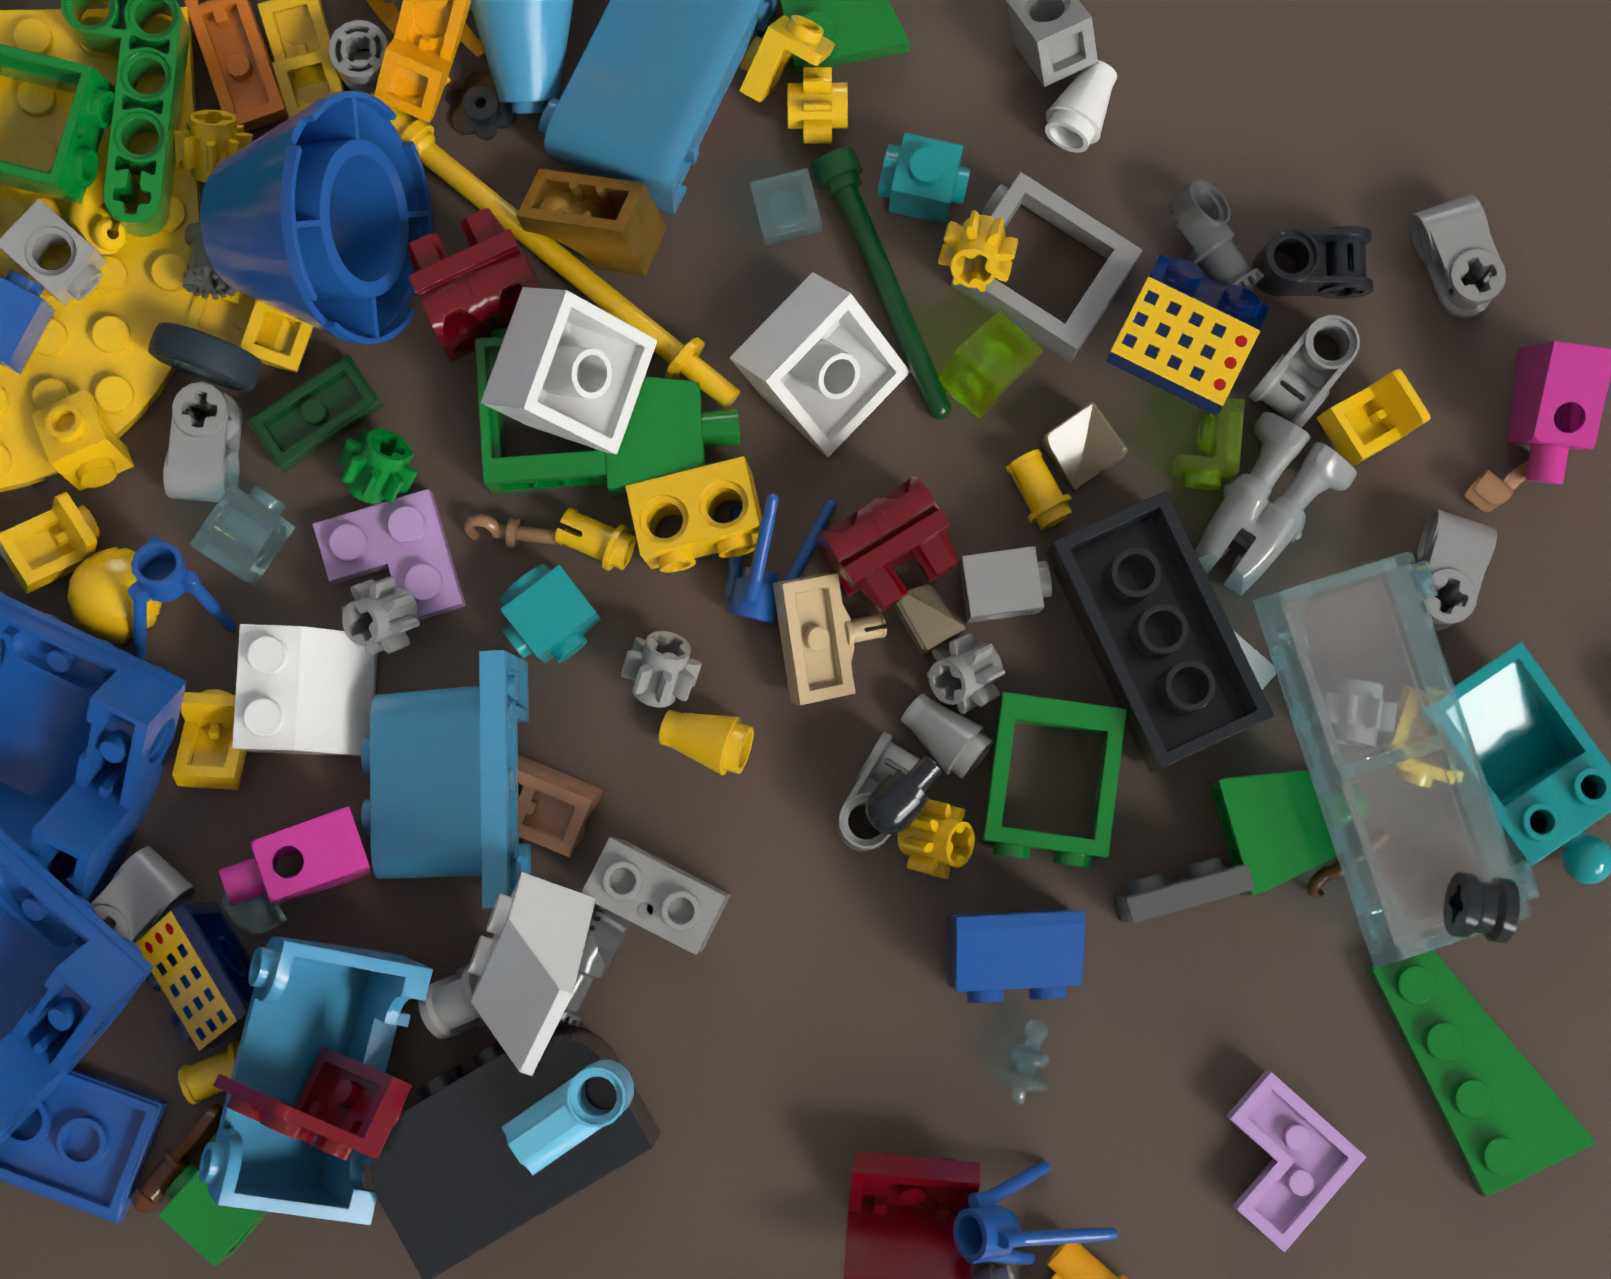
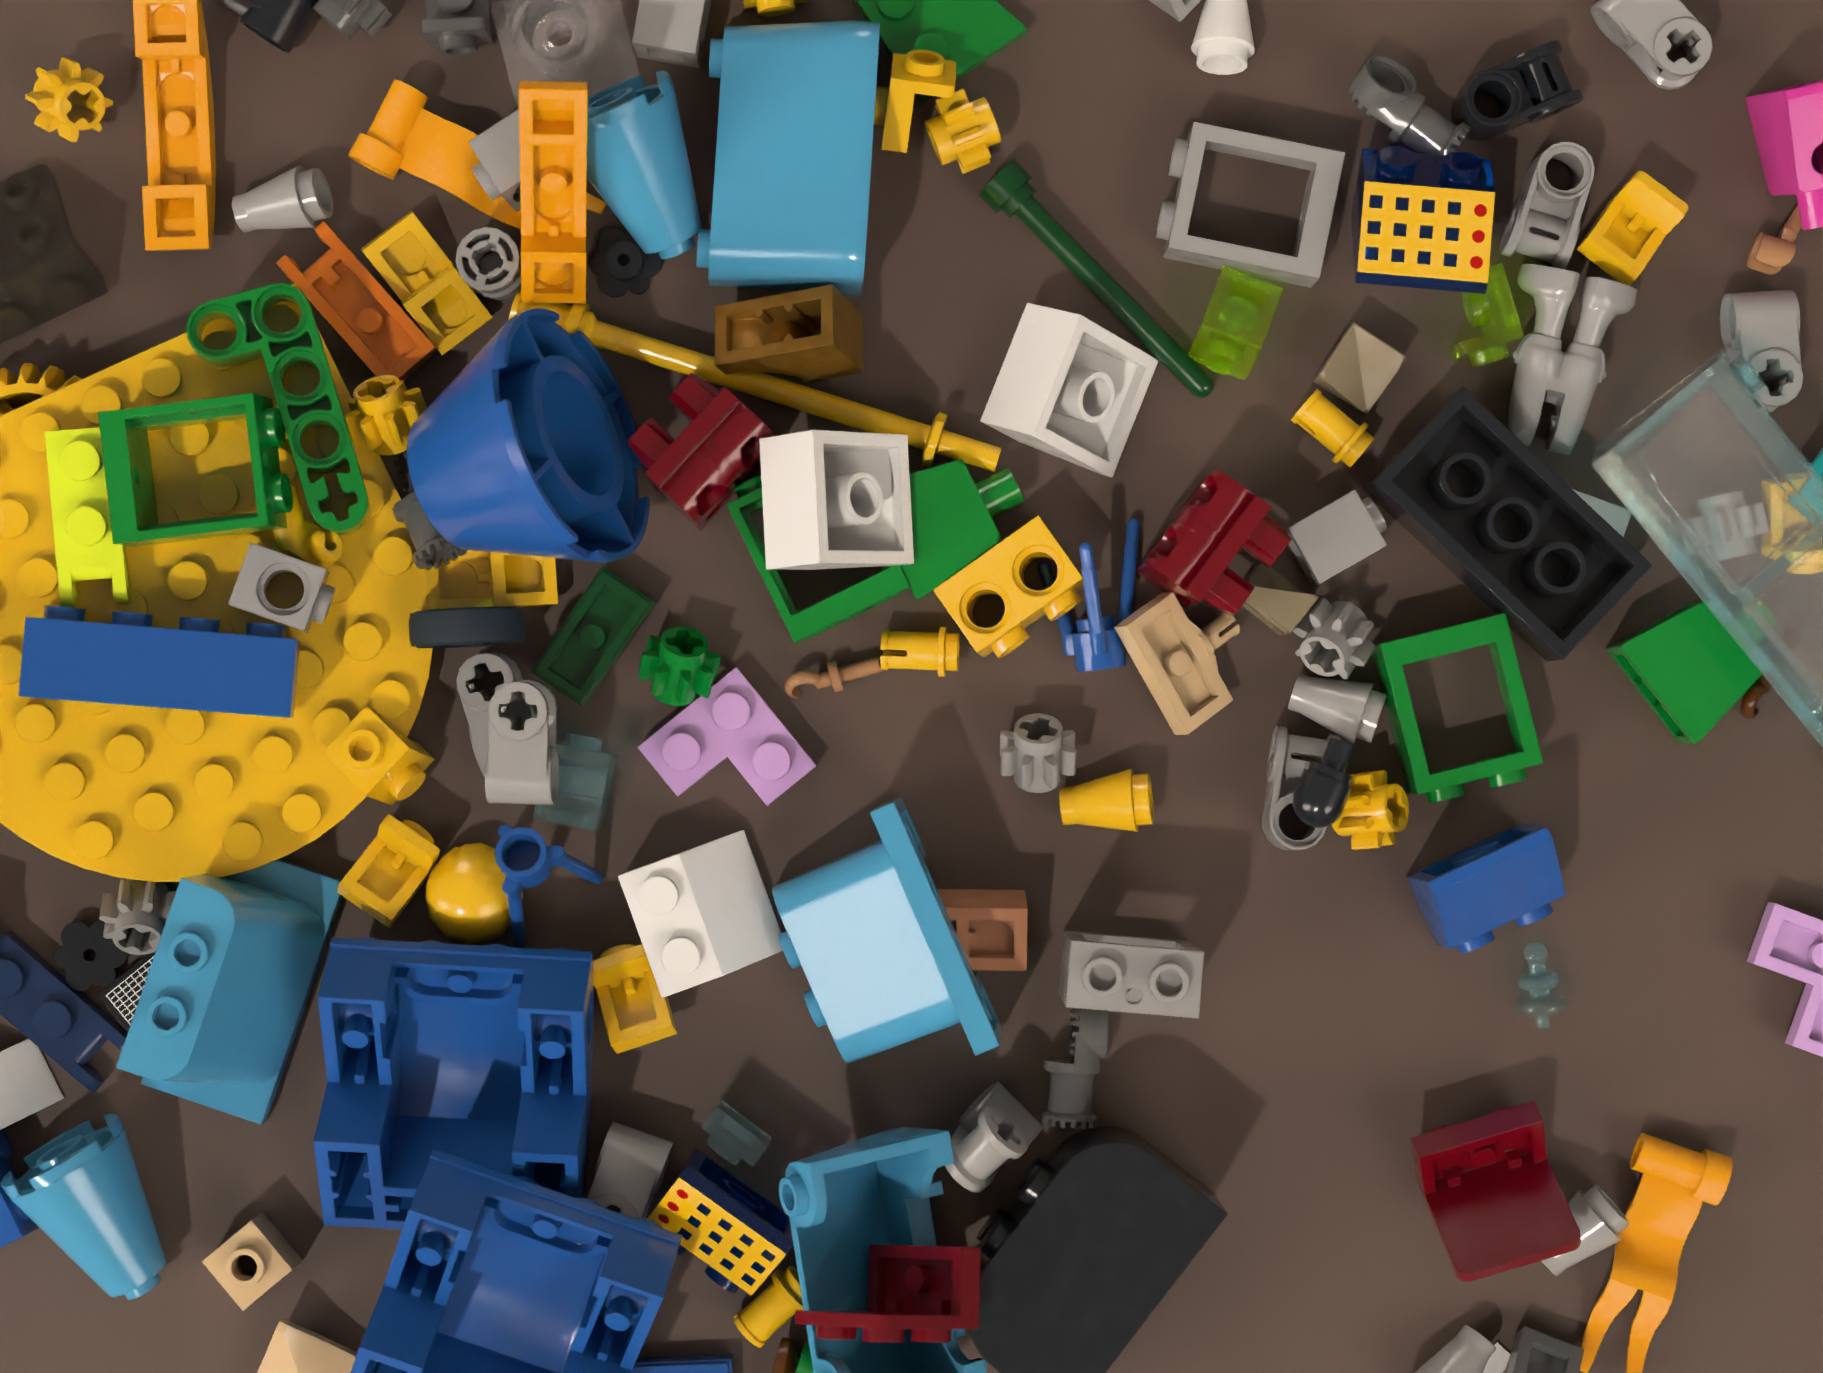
camera: 20 degrees left, 5 degrees up
(202, 480) = (520, 759): none -> light grey piece
(330, 857) = (796, 1059): dark pink torso -> none
(380, 616) = (746, 812): light grey gear -> none
(530, 965) = (1049, 1093): white slope -> none
(547, 614) = (904, 744): teal brick -> none
(566, 1116) = (1139, 1219): medium azure piece -> none
(786, 206) = (971, 245): clear light blue plate -> none
(923, 178) = (1098, 163): teal brick -> none
(978, 251) = (1189, 223): yellow gear -> none
(991, 1232) = (1576, 1159): blue plant -> none
(1205, 883) = (1643, 751): dark grey plate -> none

